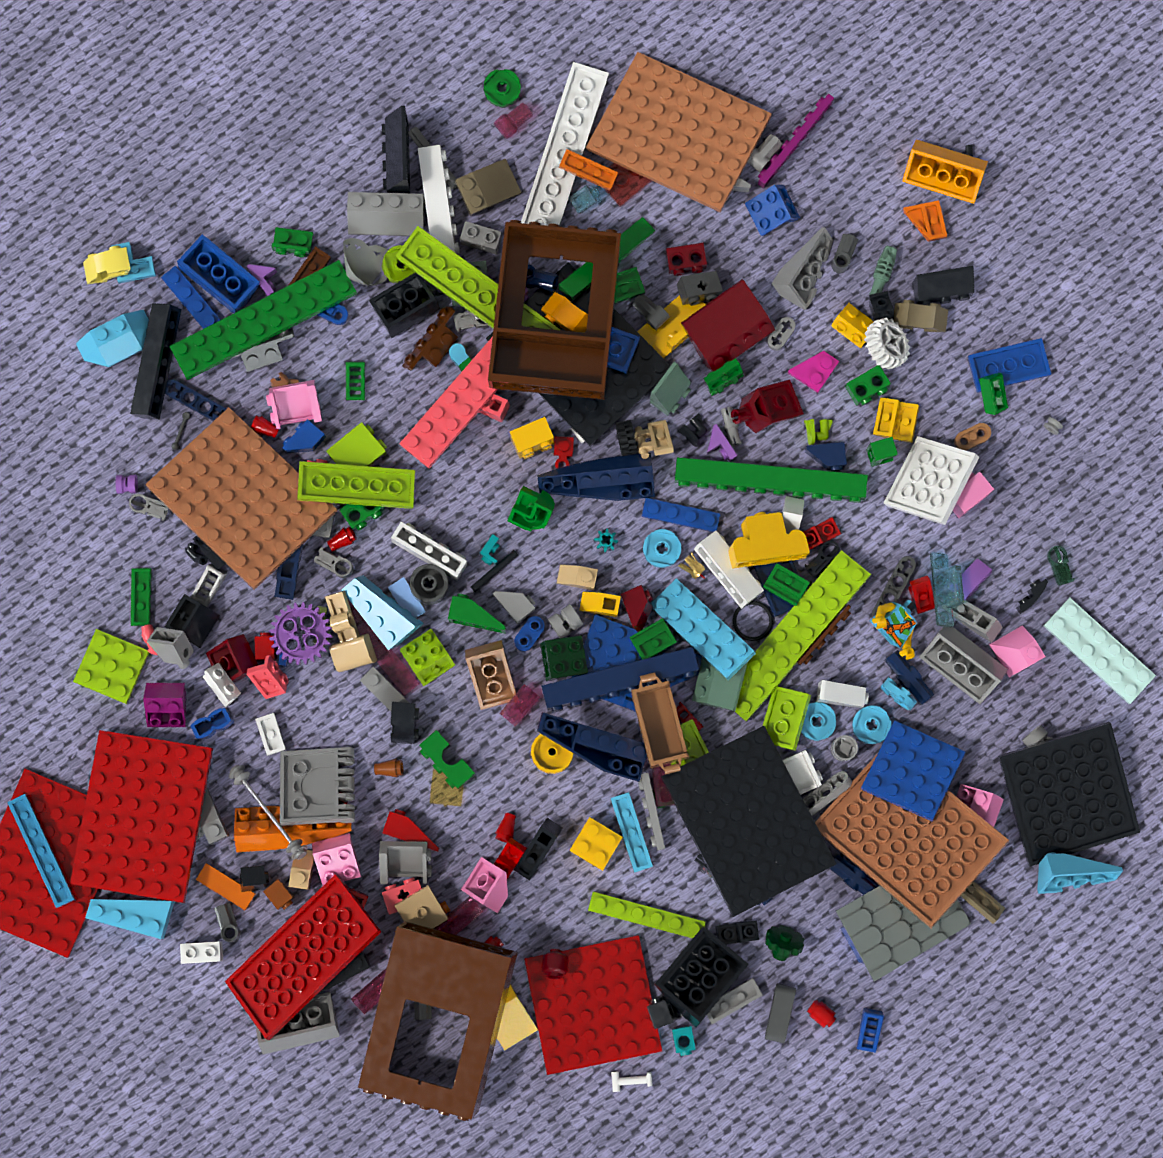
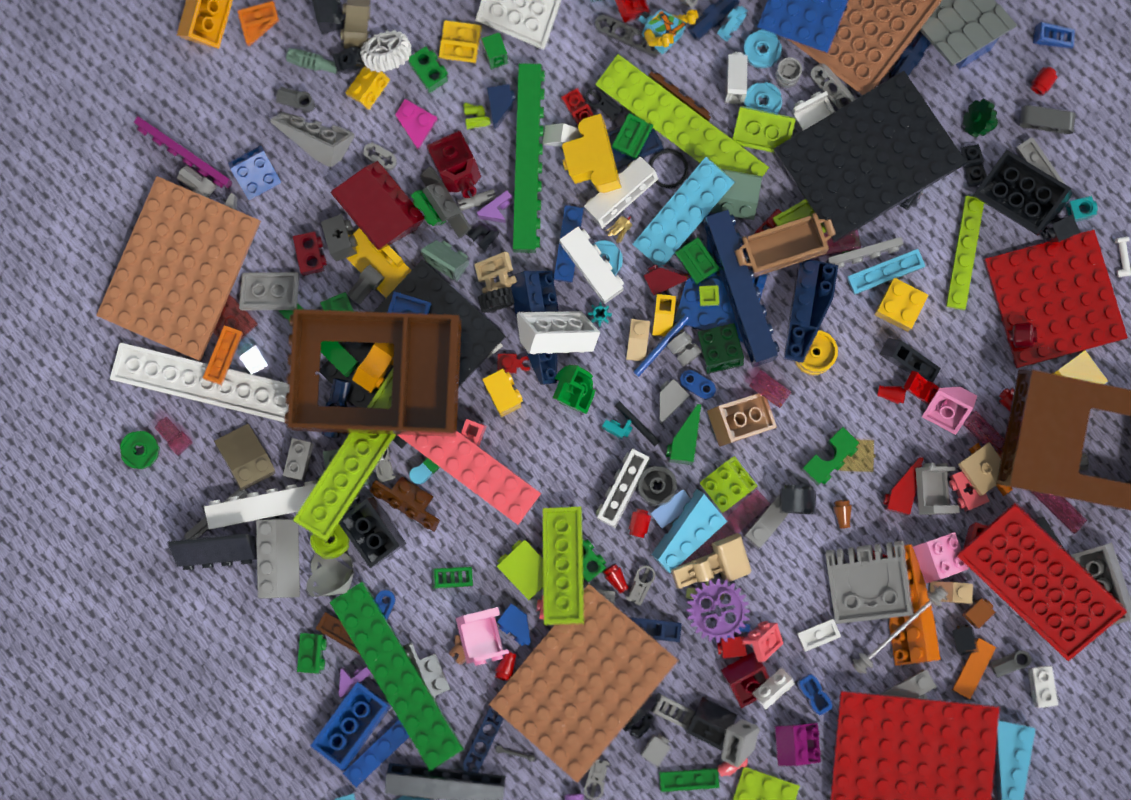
camera: 90 degrees left, 0 degrees up
(171, 564) = (656, 749): none -> light grey brick
(394, 565) = (639, 523): none -> red brick
(570, 599) = (661, 345): none -> blue bar
(588, 493) = (556, 332): none -> white slope
(616, 648) = (709, 295): none -> lime plate
(650, 218) = (269, 291): none -> light grey tile
(654, 533) = (591, 265): none -> white brick
(729, 391) = (443, 202): none -> dark grey bracket

